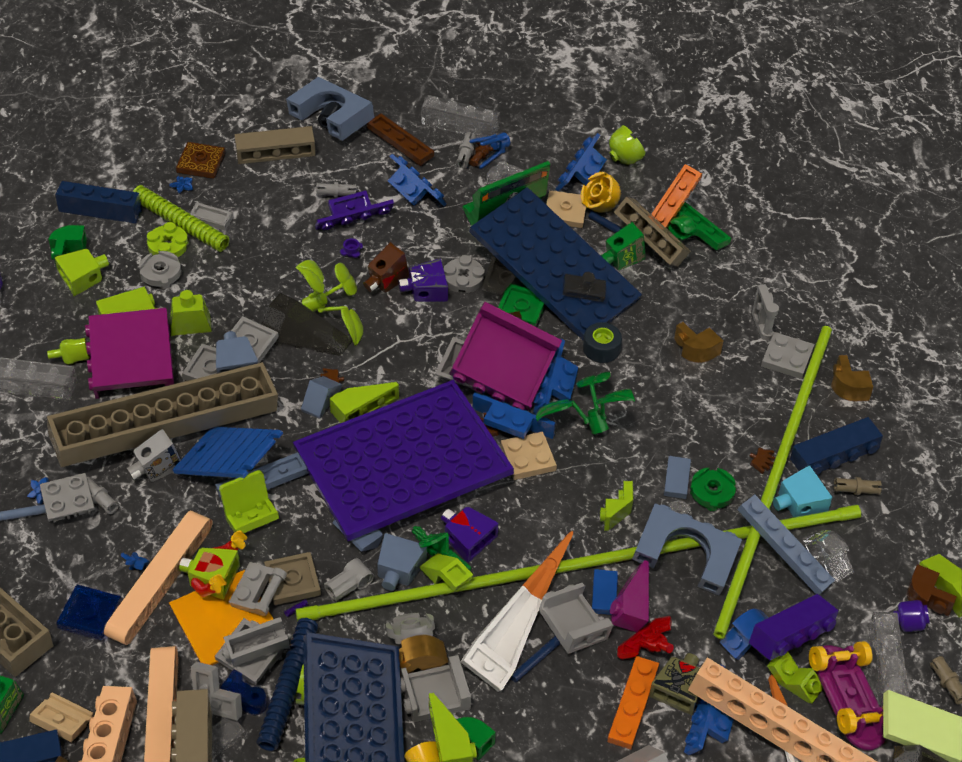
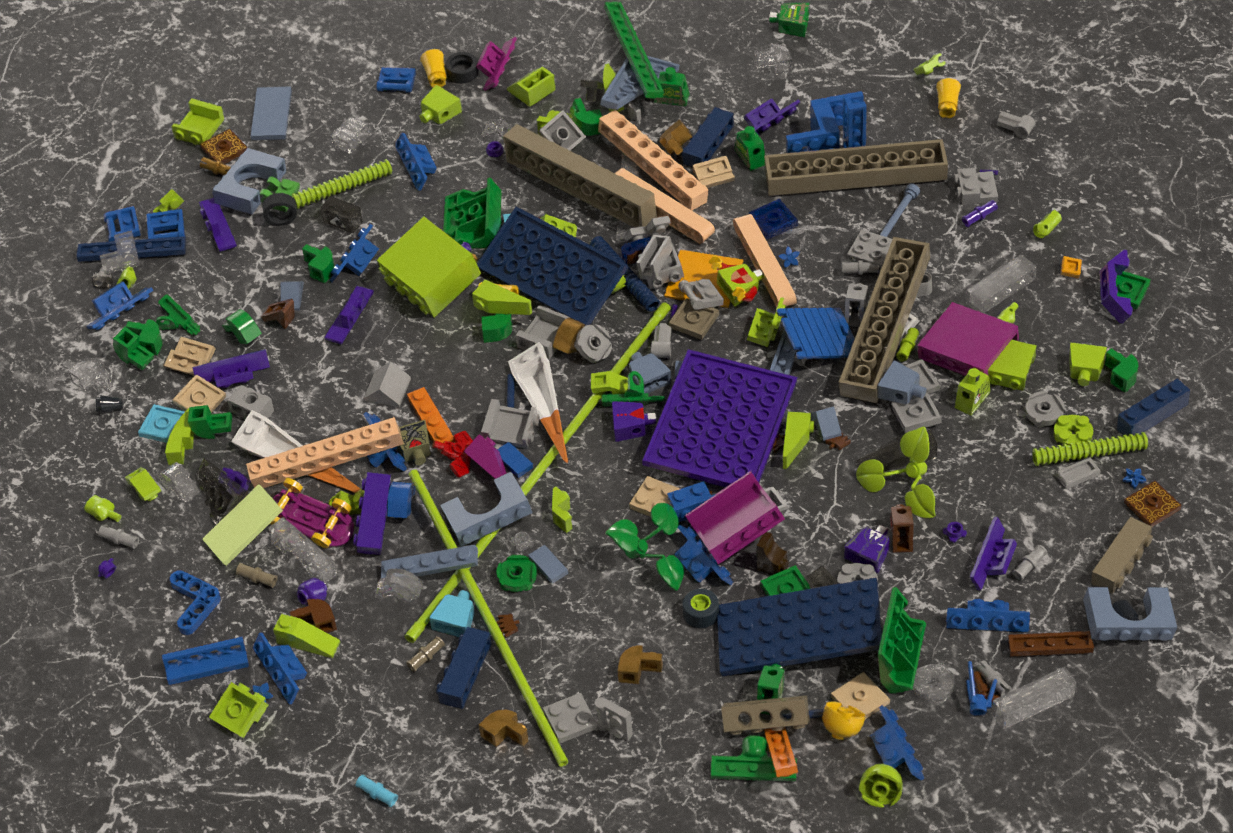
camera: 140 degrees right, 0 degrees up
(584, 287) = (754, 621): clear smoke tile -> none

